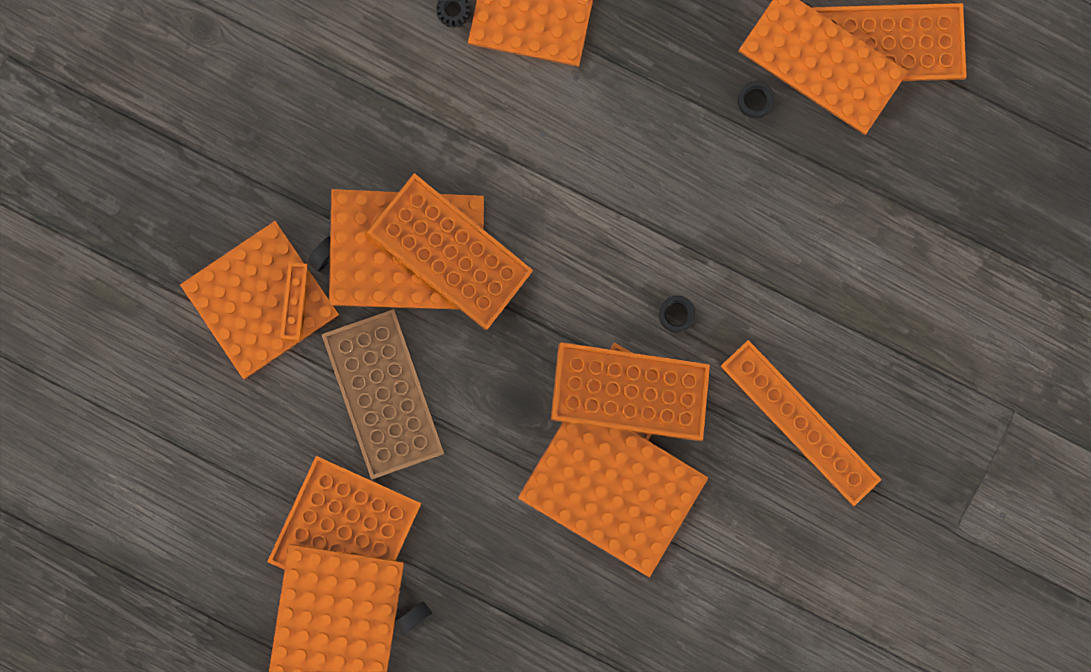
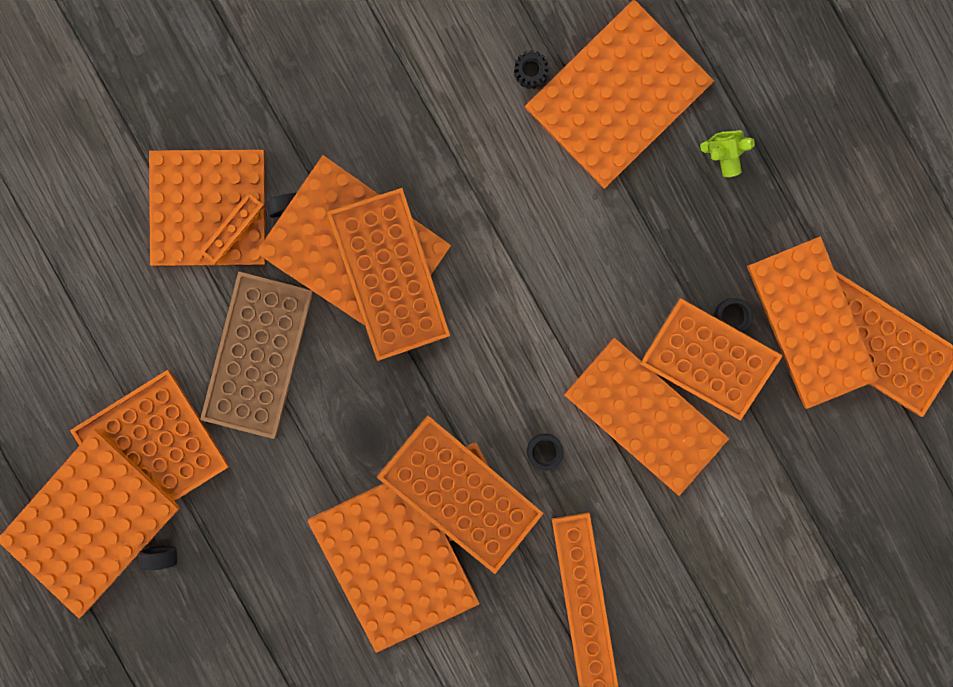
camera: 30 degrees right, 5 degrees up
(741, 229) = (646, 416): none -> orange plate
(760, 146) = (710, 359): none -> orange plate

